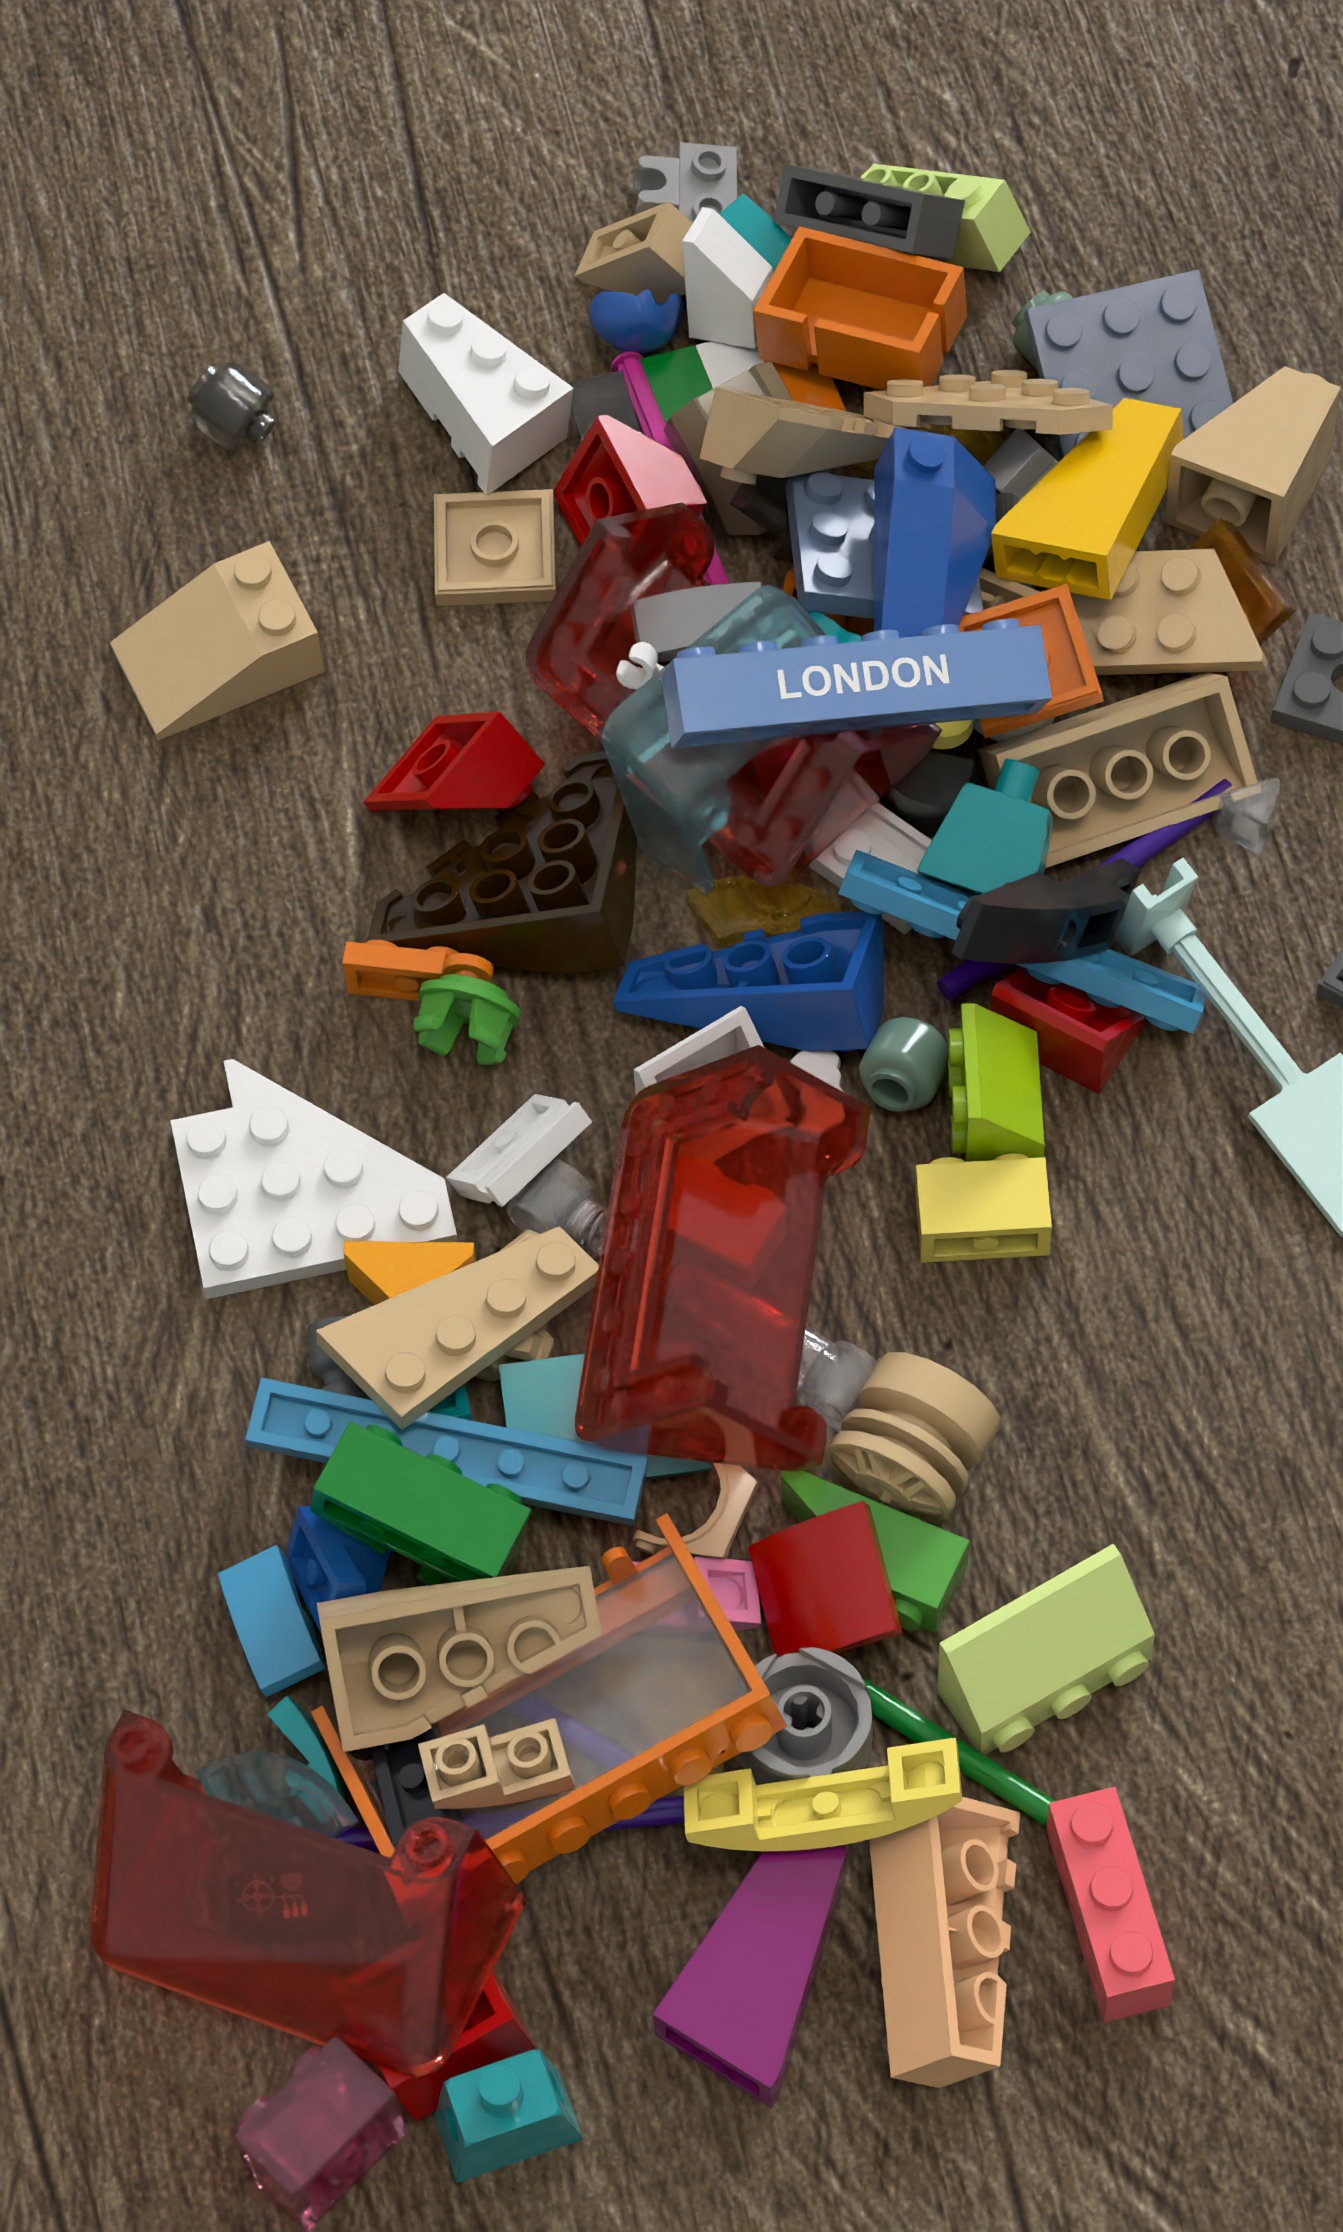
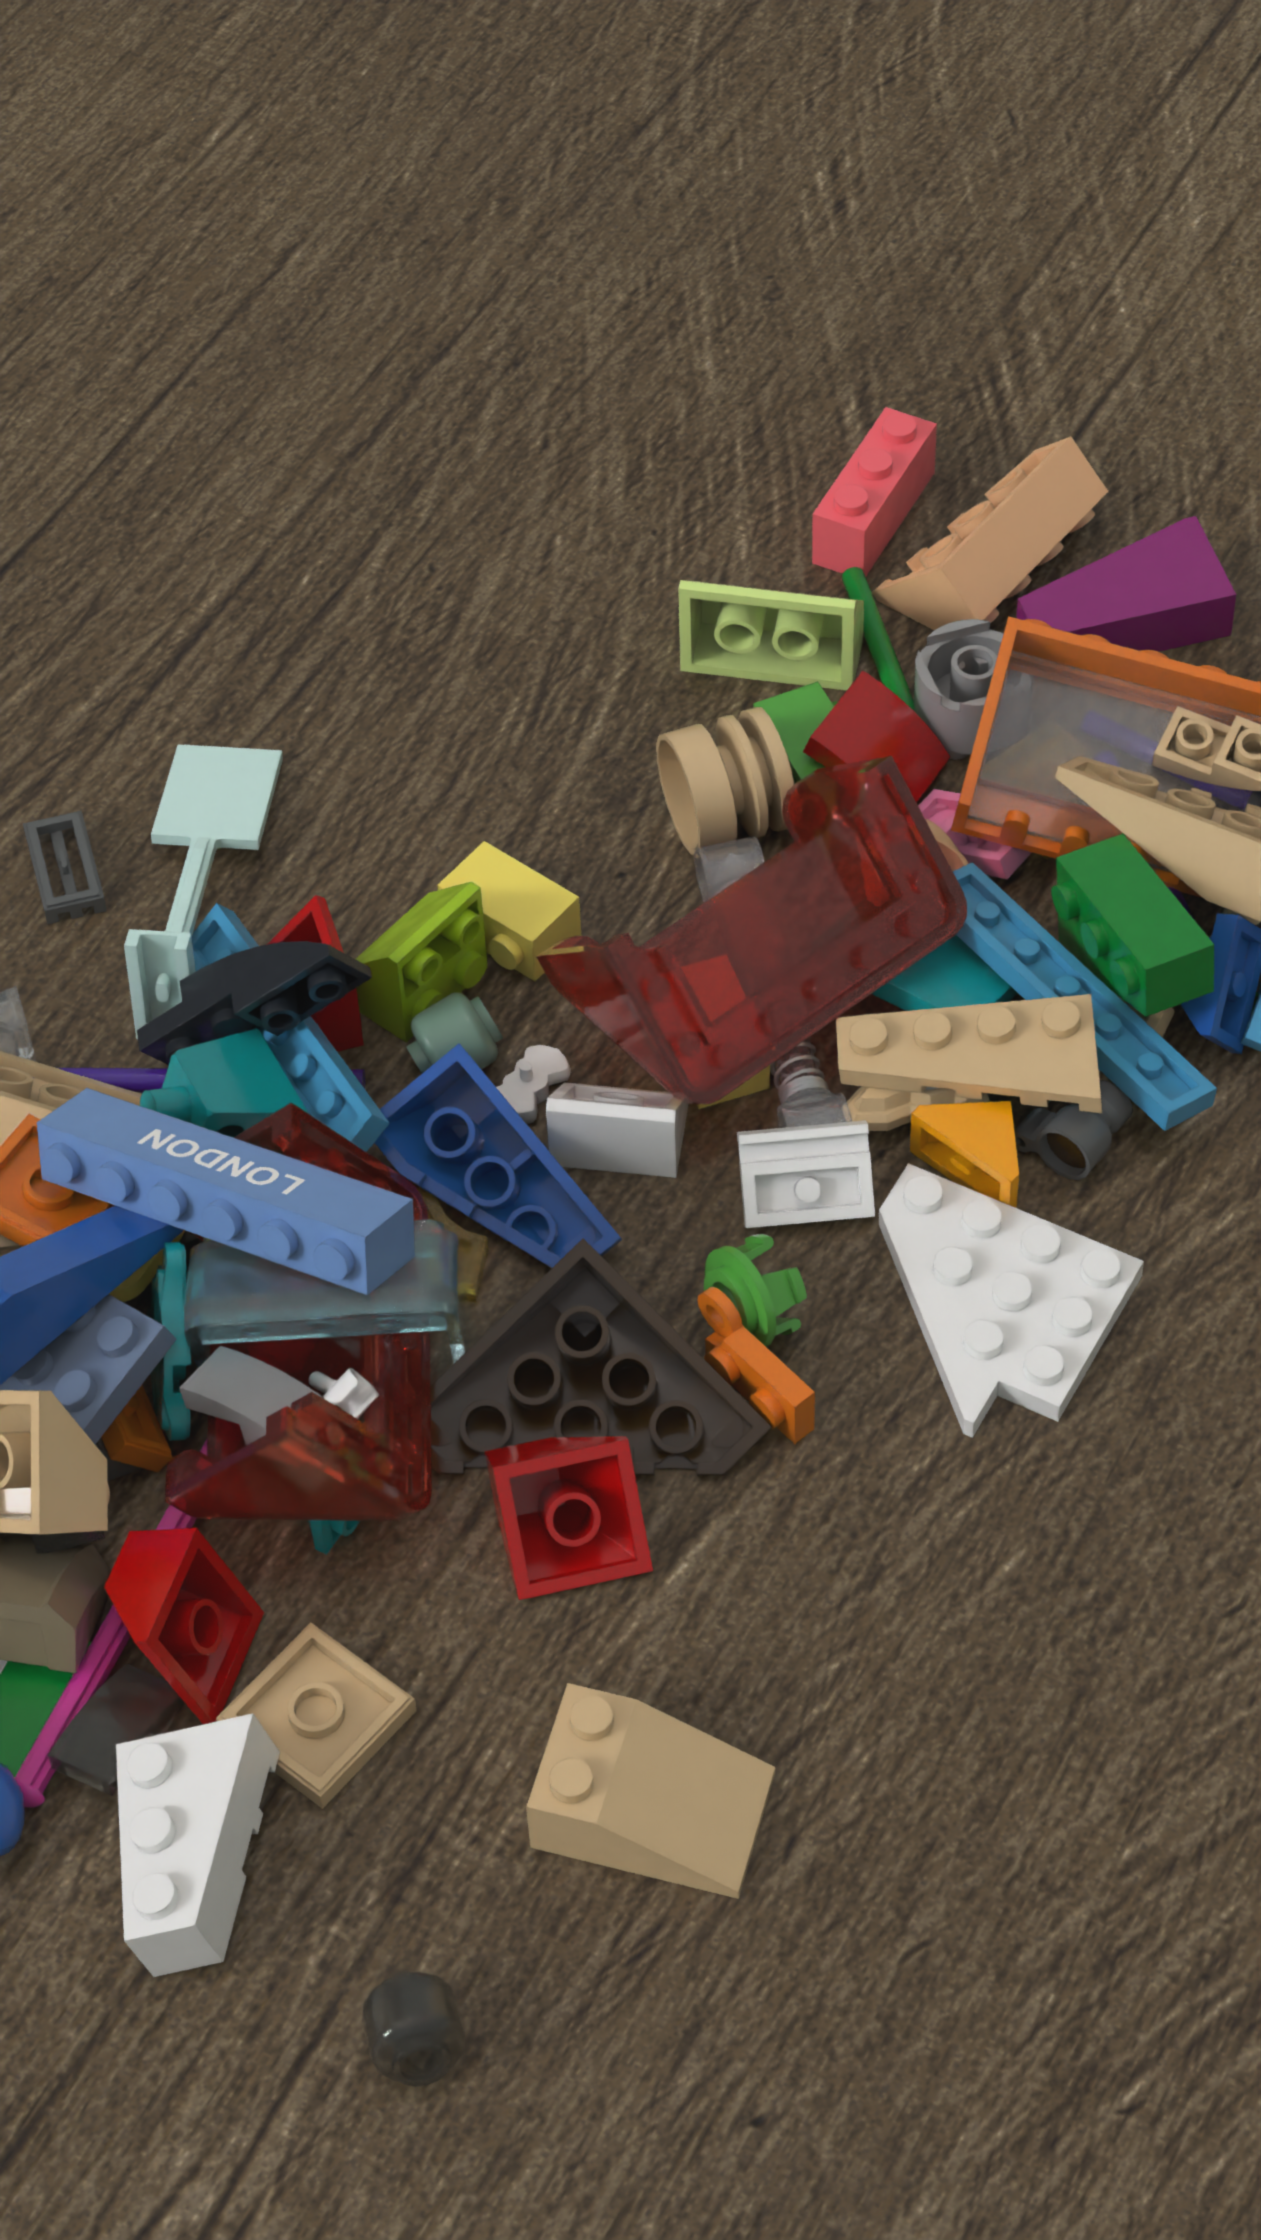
camera: 140 degrees left, 10 degrees down
(824, 1809) = (990, 591): light yellow slope -> none

